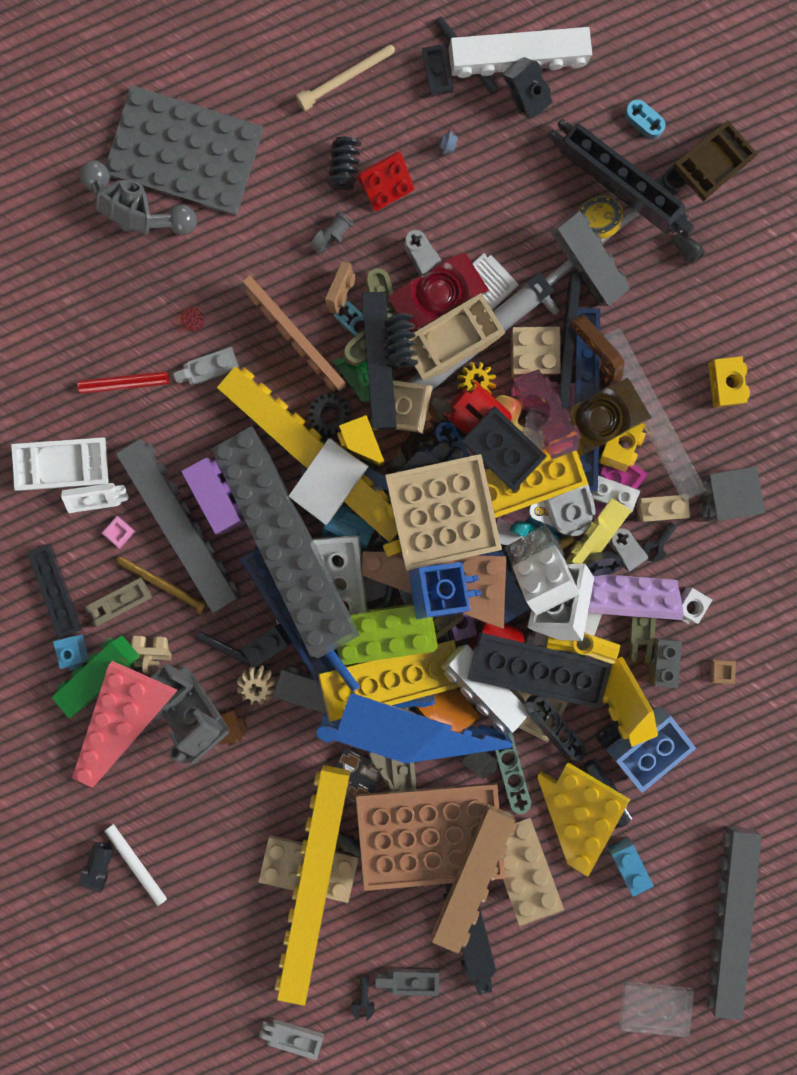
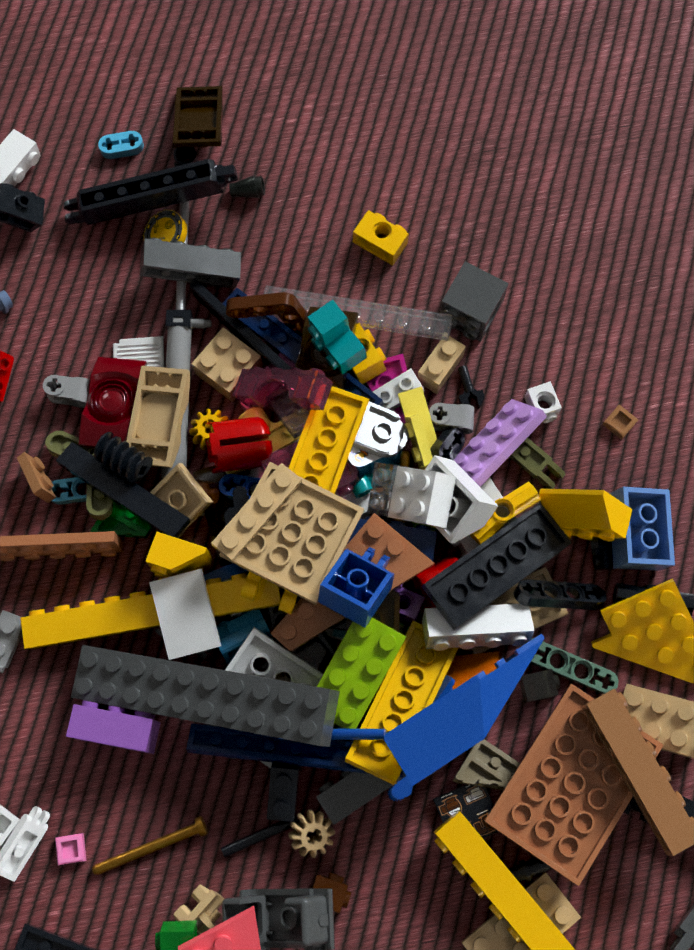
camera: 50 degrees left, 15 degrees down
(119, 602) = (132, 903): dark tan plate -> none
(178, 525) = (112, 786): dark grey brick -> none
(323, 402) = (117, 569): black tyre -> none
(436, 476) = (256, 512): none -> tan plate
(503, 448) = (281, 439): black tile -> none
(616, 417) = (333, 336): none -> teal brick
(665, 663) = (575, 460): dark grey brick -> none

